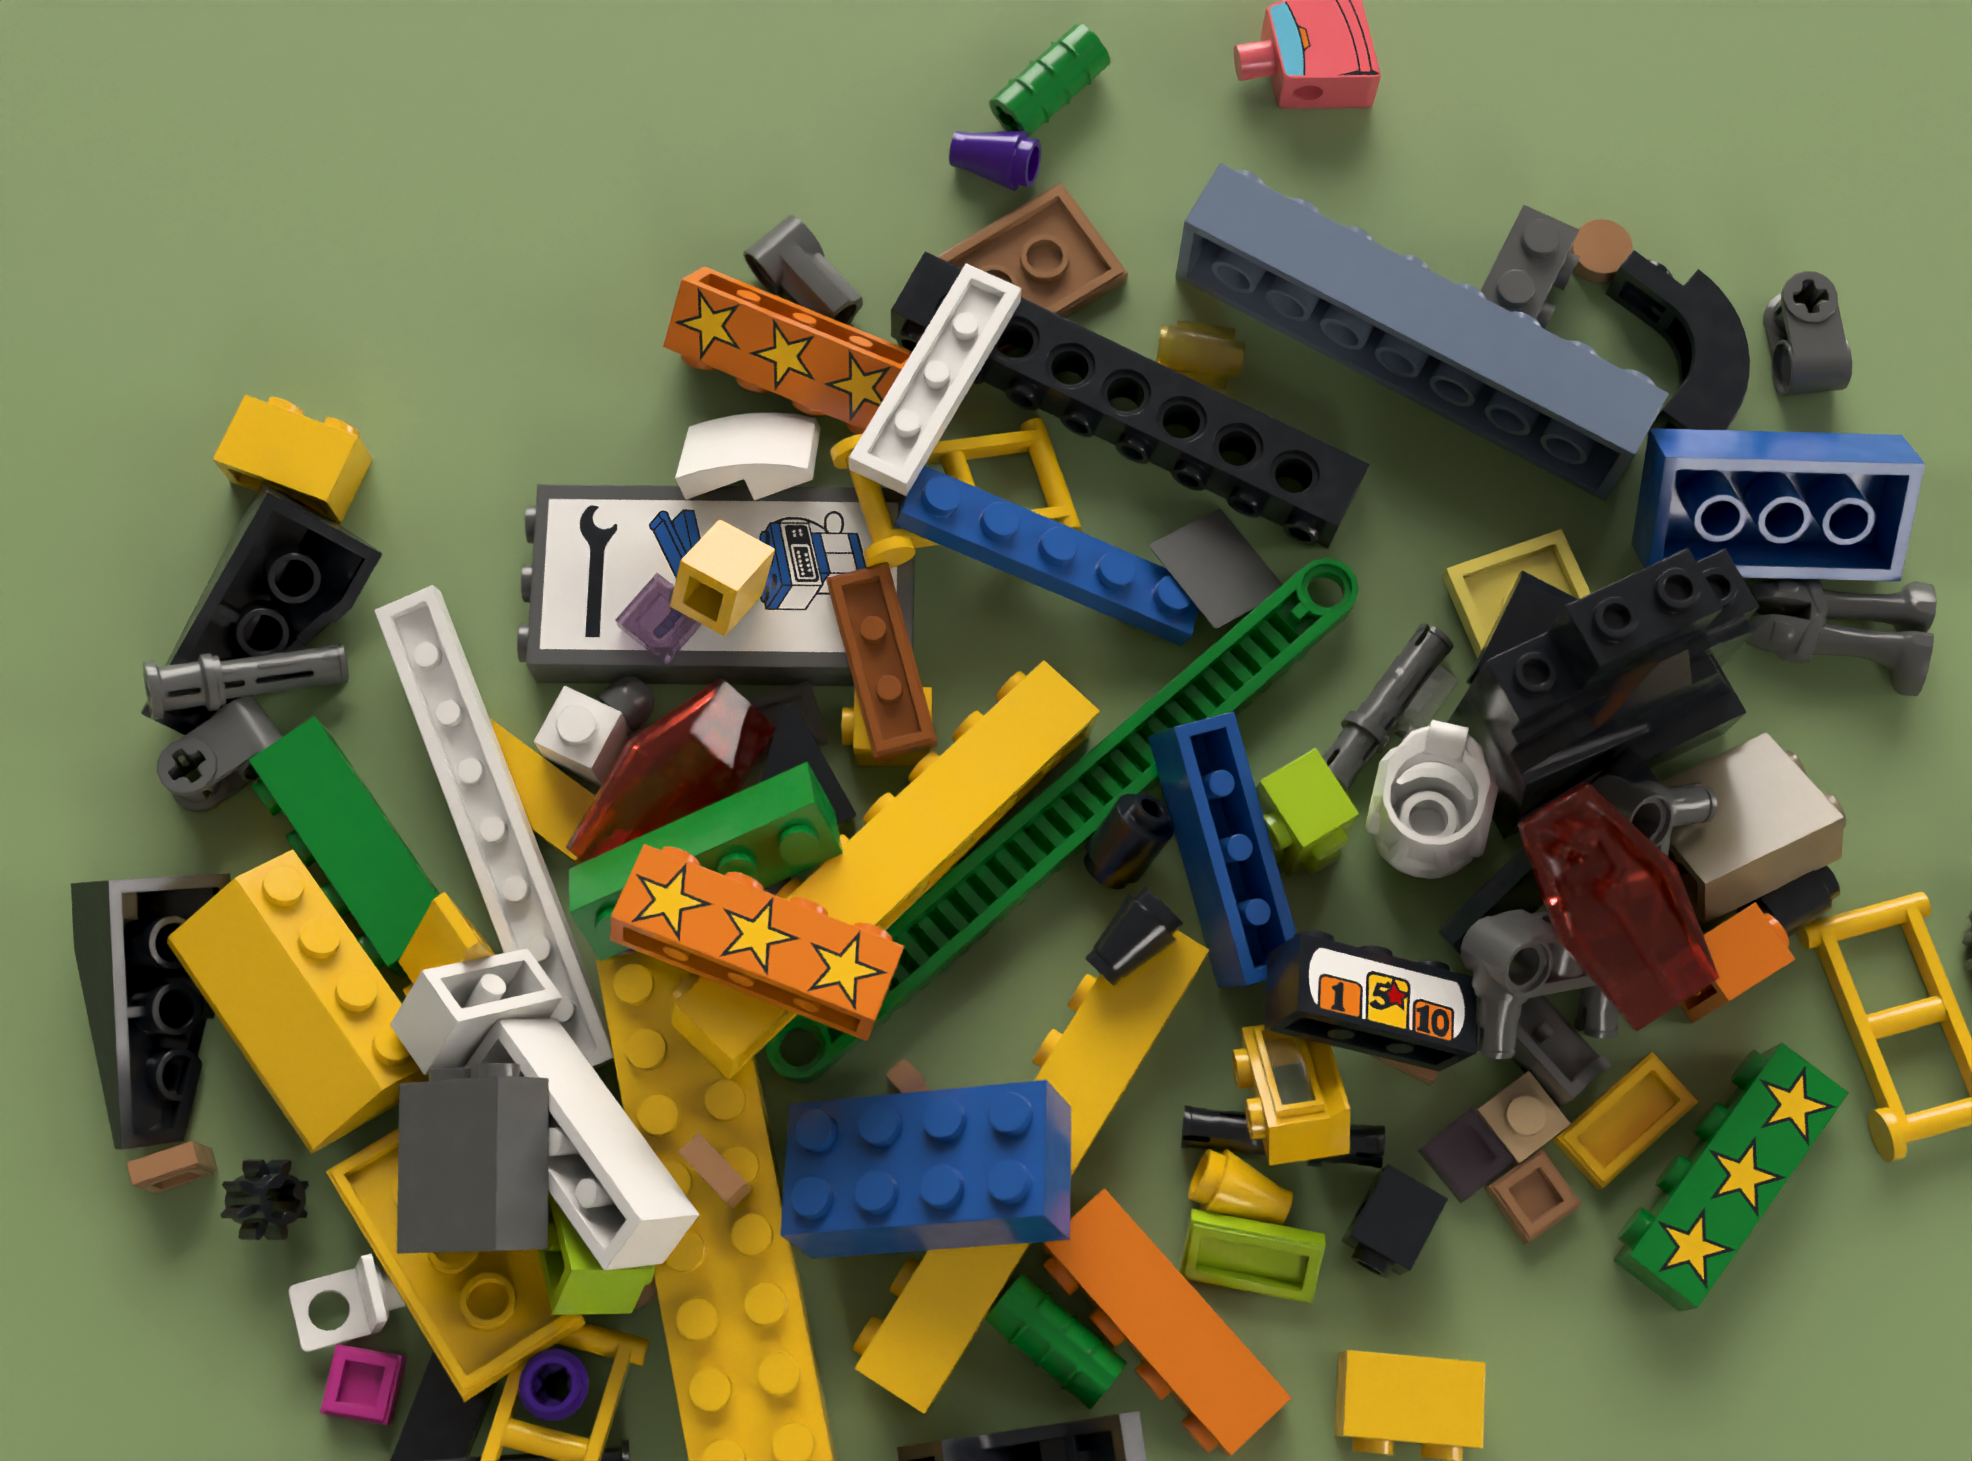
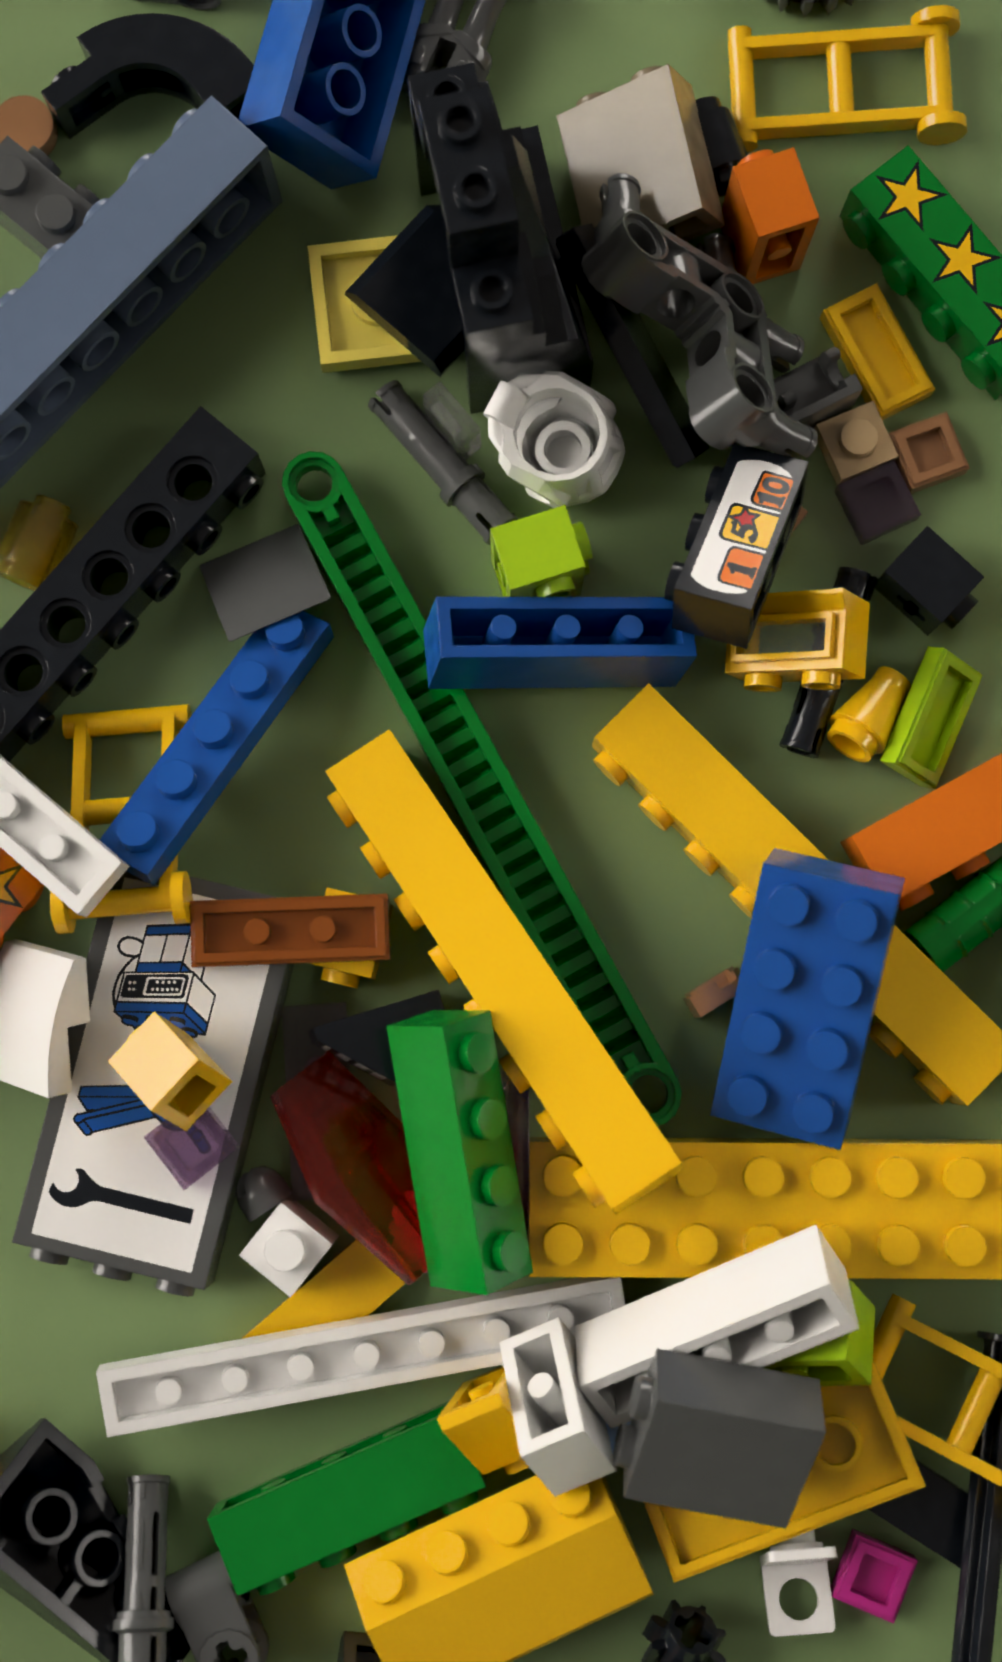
camera: 75 degrees left, 10 degrees up
(538, 1380) = (935, 1402): dark purple cone -> none
(715, 1170) = (773, 1200): medium nougat tile -> none
(755, 940) = (572, 1113): orange brick -> none
(1128, 840) = (521, 733): black brick -> none
(1134, 936) = (626, 749): black cone -> none
(1617, 905) = (715, 288): clear red piece -> none

